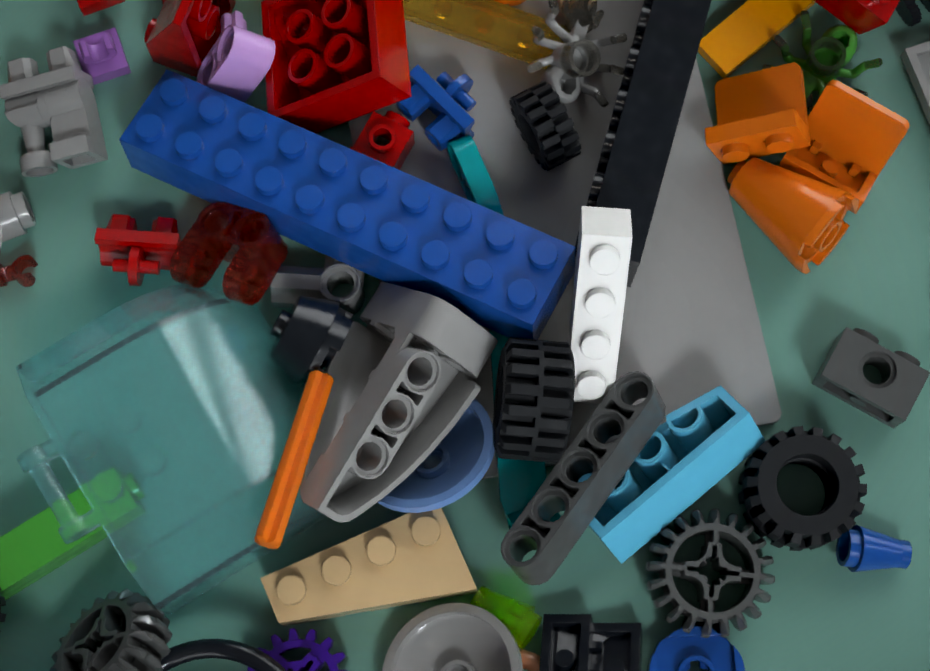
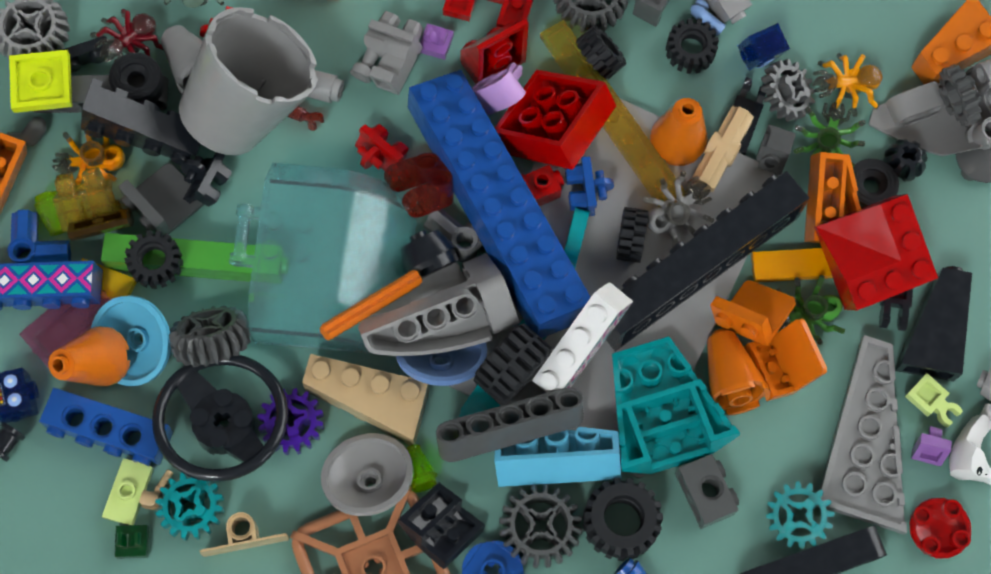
camera: 35 degrees right, 5 degrees down
(748, 313) = (664, 410): none -> teal wedge

